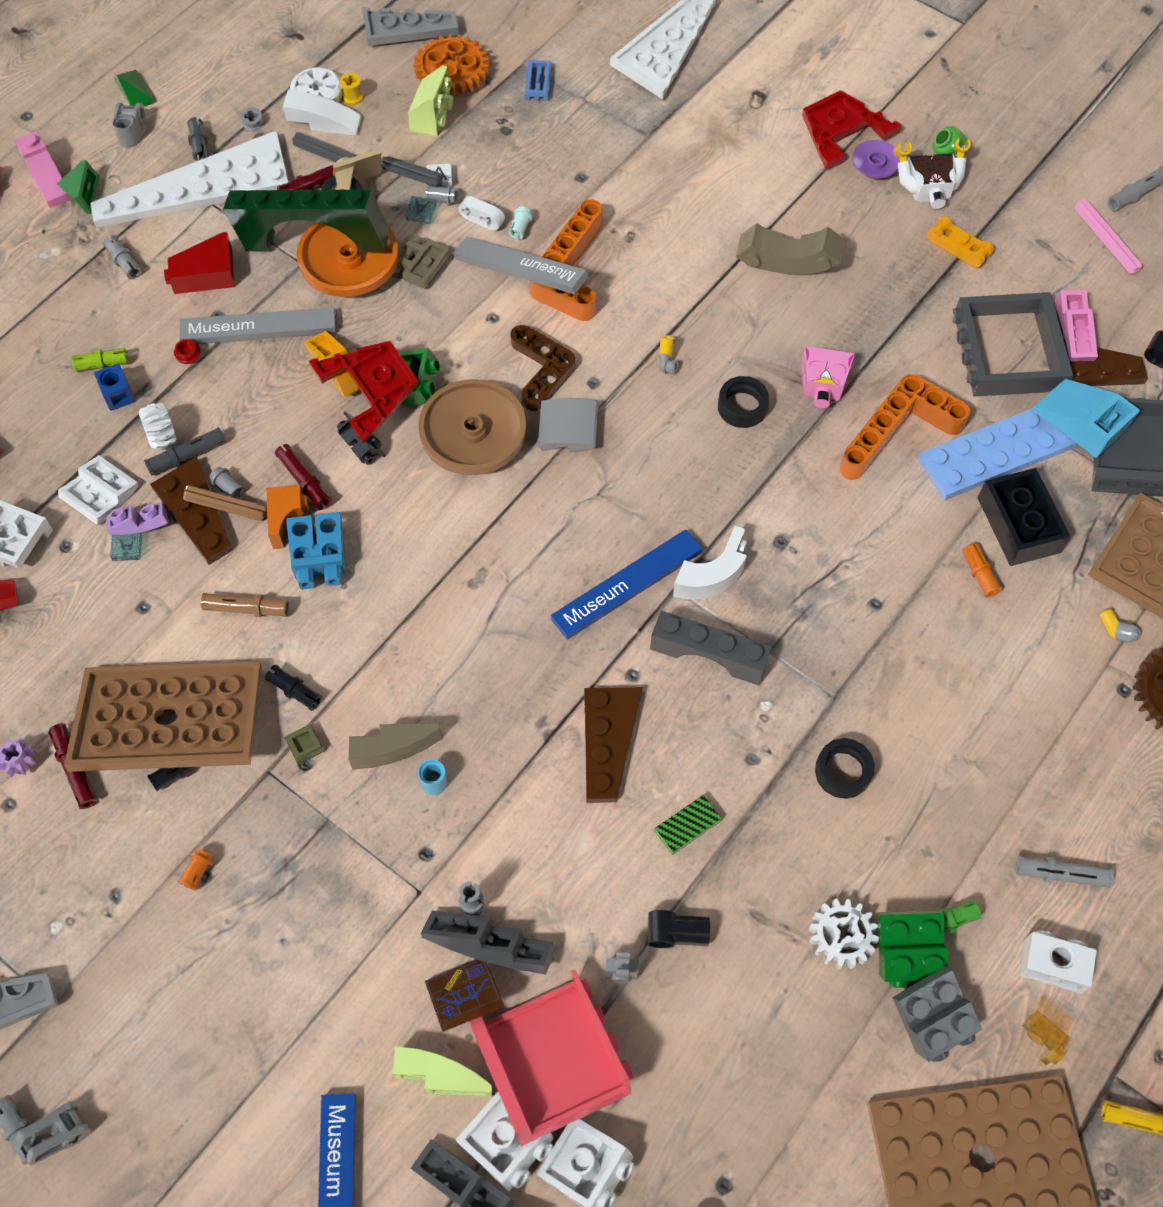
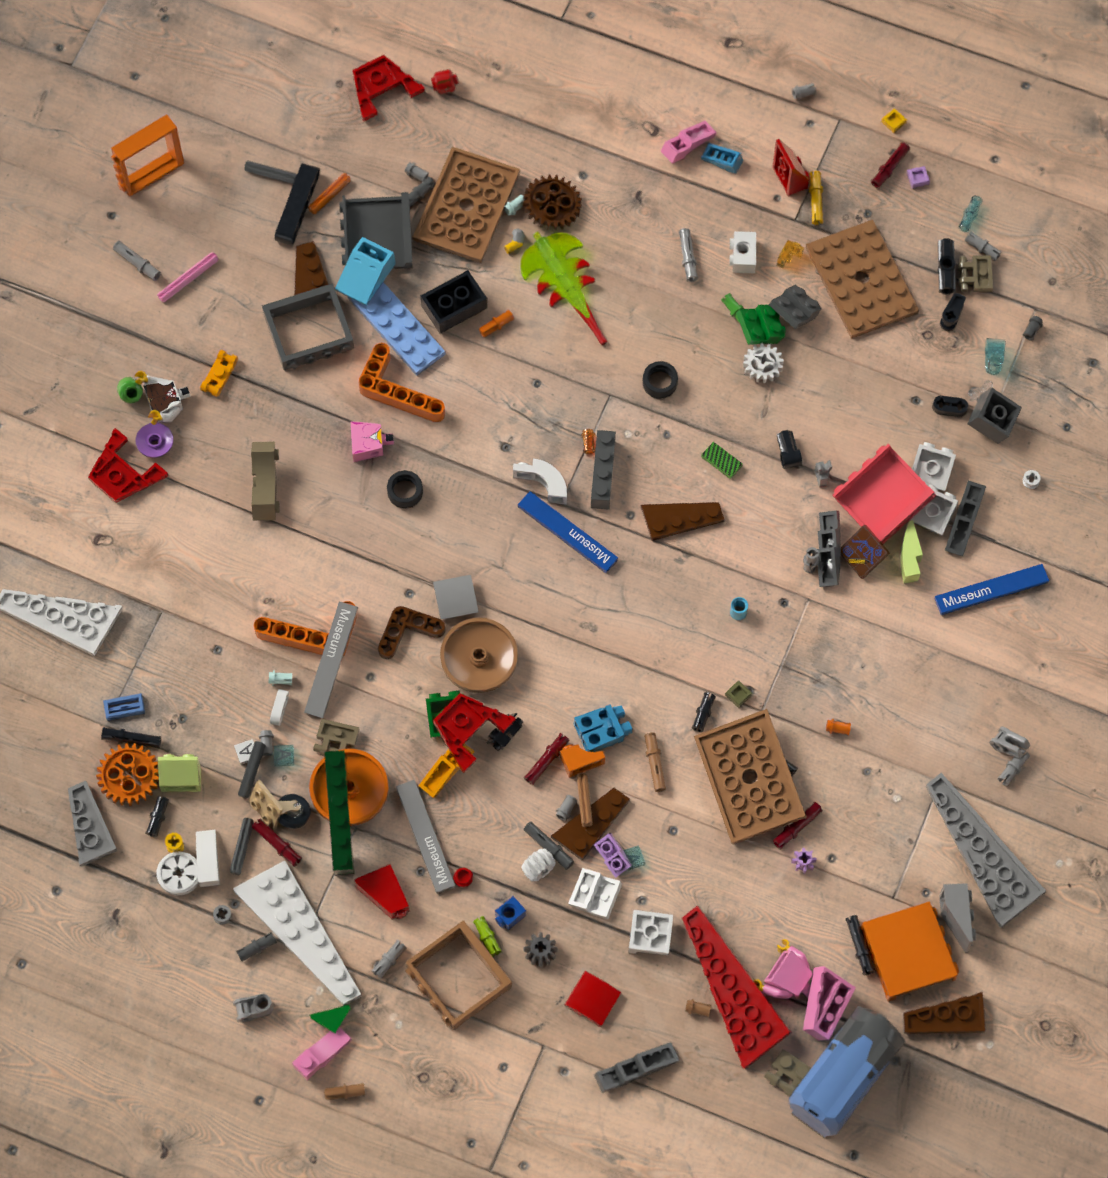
camera: 105 degrees left, 5 degrees up
(52, 408) = (548, 949): none -> flat silver gear
(55, 286) = (464, 930): none -> medium nougat window
(134, 88) = (210, 1023): green slope -> none
(392, 83) = (157, 816): none -> black pin
(392, 744) = (725, 639): dark tan slope -> none
(499, 70) = (123, 736): none -> black pin
(667, 365) = (378, 548): arm -> none
(773, 641) = (588, 441): none -> clear orange pin
(1077, 325) = (283, 286): bright pink slope -> none
(1085, 665) = (550, 256): none -> clear neon green animal

